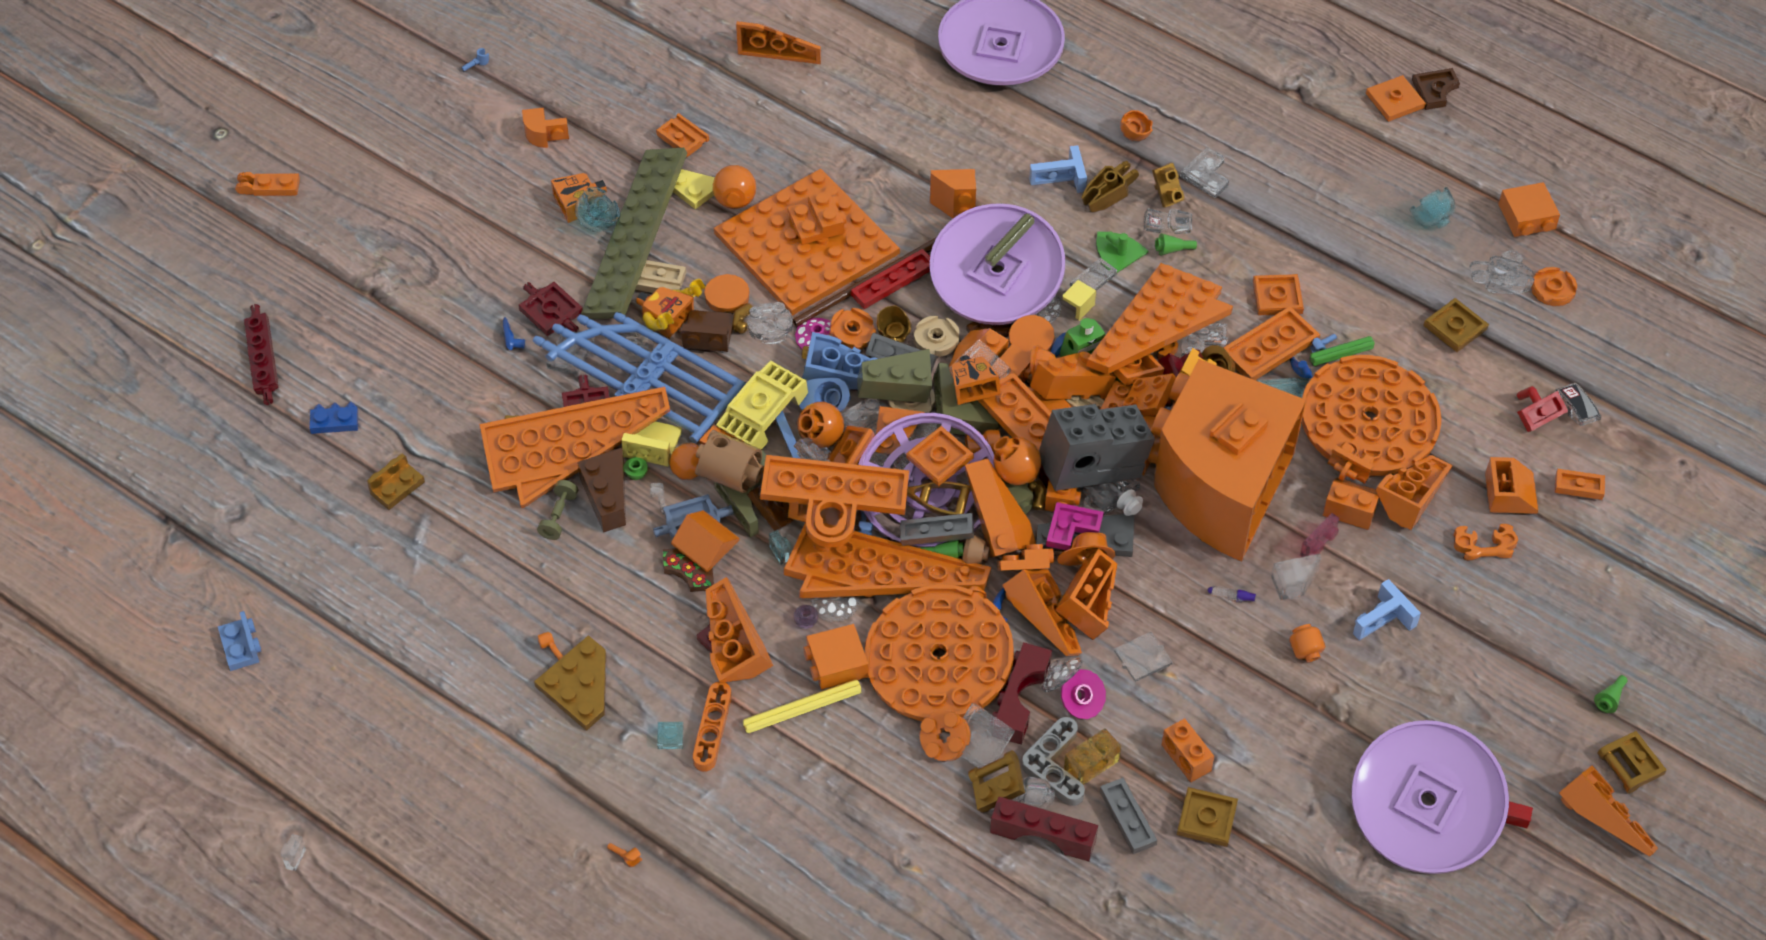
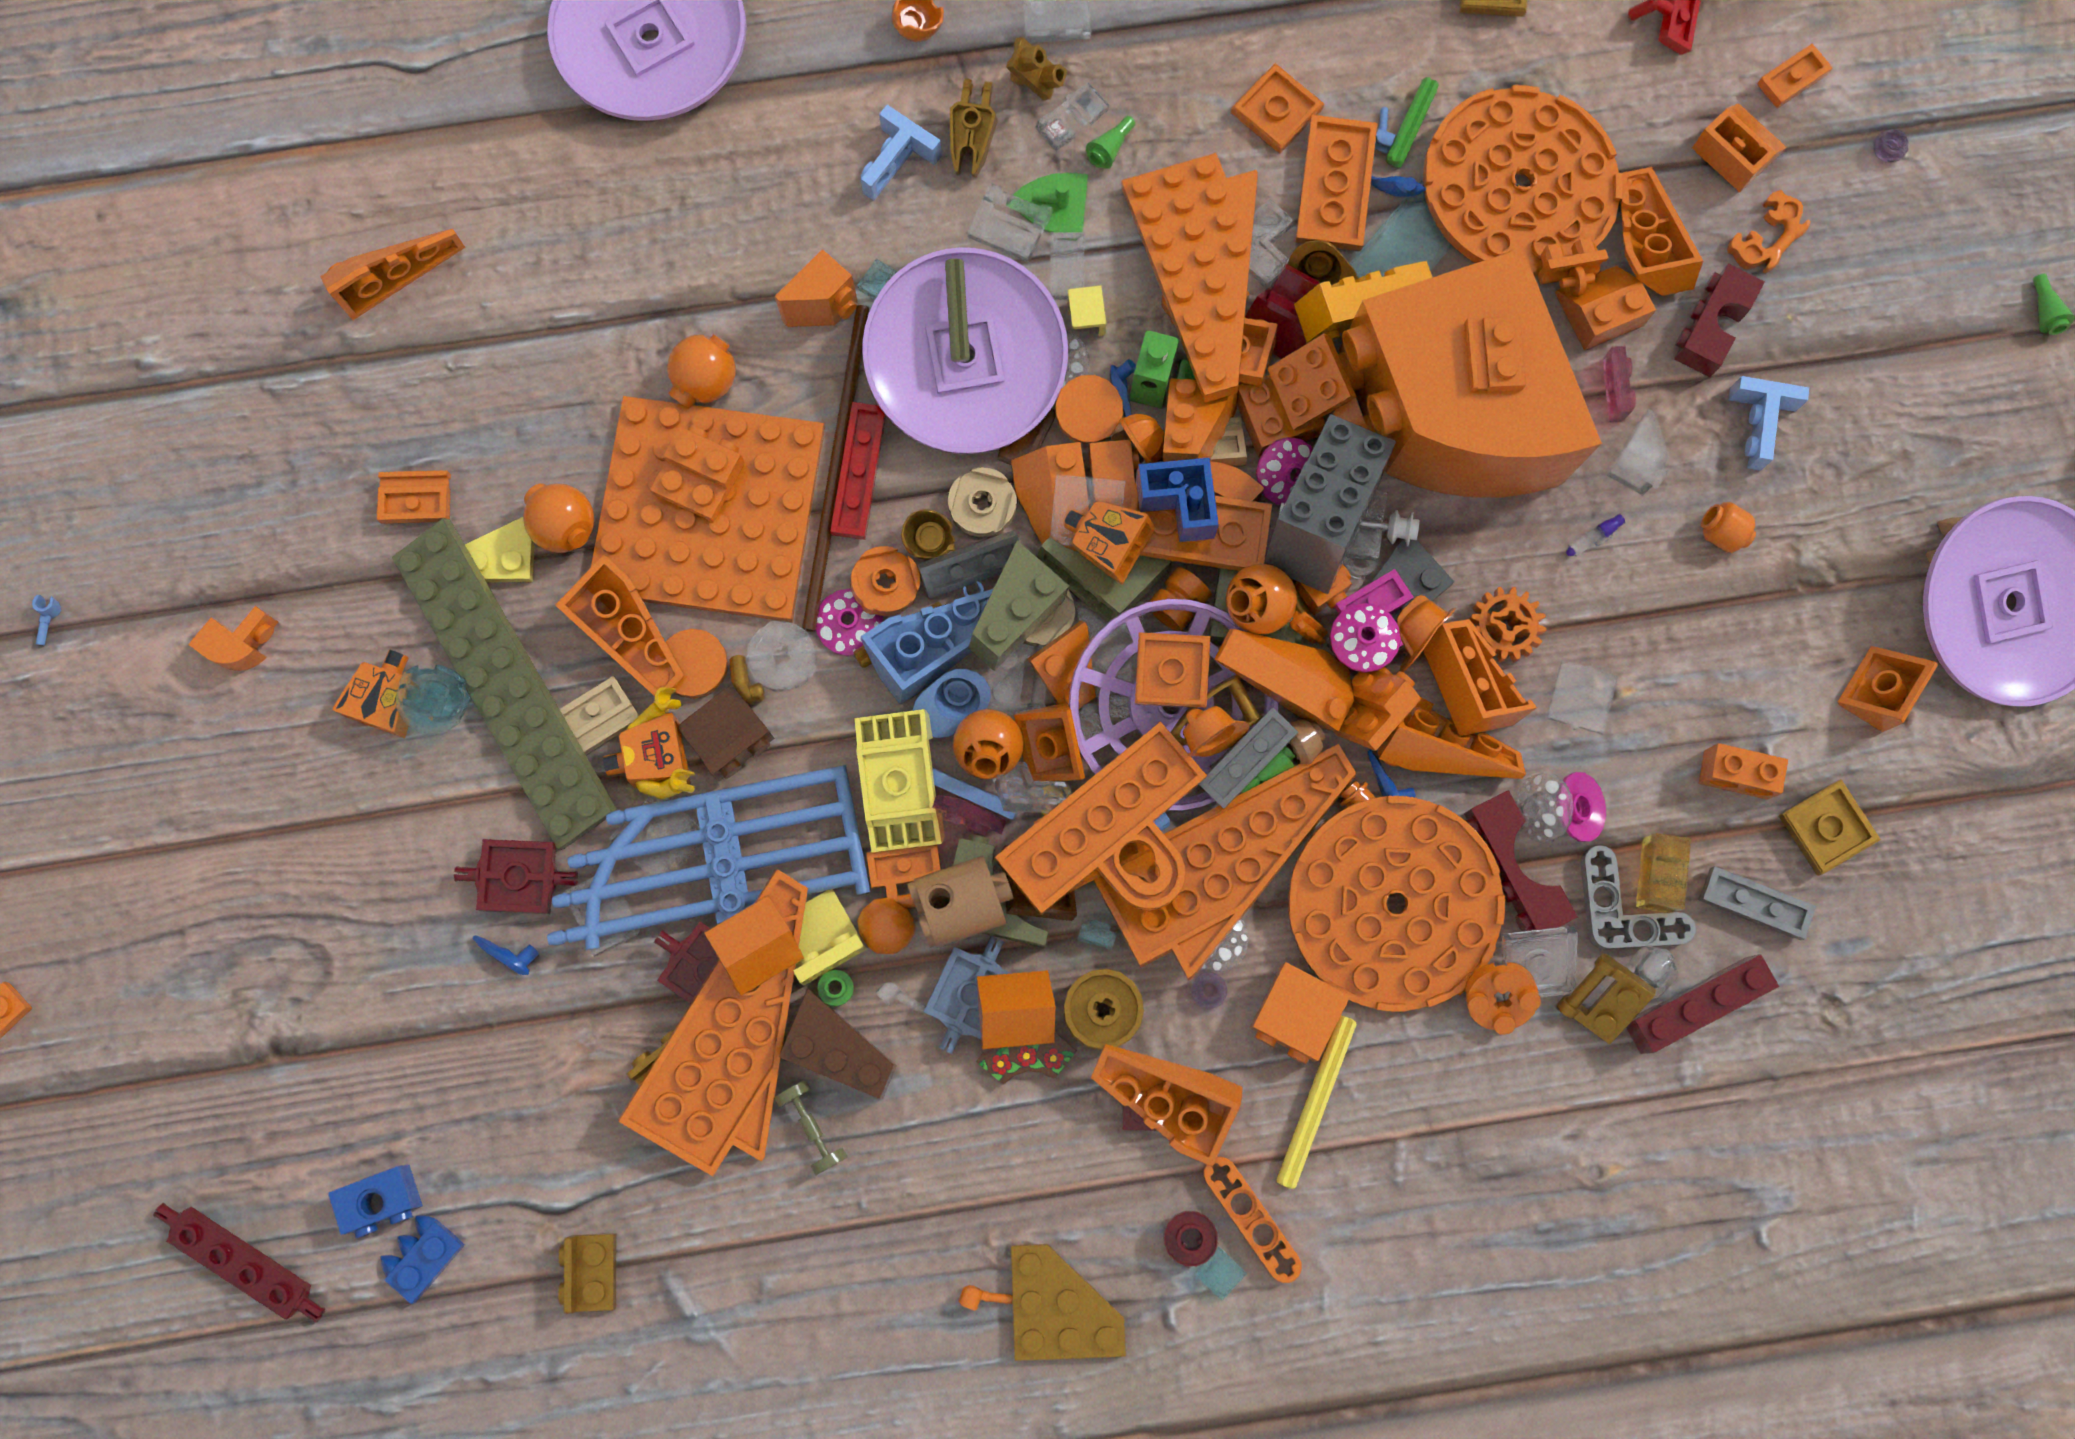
camera: 45 degrees left, 25 degrees up
(343, 376) = (353, 1202): none -> blue brick
(618, 407) = (754, 945): none -> orange slope
(673, 703) = (1190, 1238): none -> dark red plate
(712, 242) = (616, 619): none -> orange wedge
(748, 572) = (1107, 988): none -> pearl gold wheel
(775, 436) = (961, 813): none -> clear pink plate
(867, 183) = (700, 370): none -> orange brick
(928, 495) = (1212, 731): none -> orange piece
(1027, 384) = (1182, 487): none -> blue brick
(1032, 504) = (1308, 627): none -> orange axle
(1051, 533) = (1356, 651): none -> dark pink dish
(1078, 240) = (1005, 231): none -> clear plate
(1138, 589) = (1510, 611): none -> orange gear
(1312, 783) = (1886, 687): none -> orange slope
(1426, 545) = (1705, 343): none -> dark red arch
(1604, 551) = (1894, 138): none -> clear purple plate

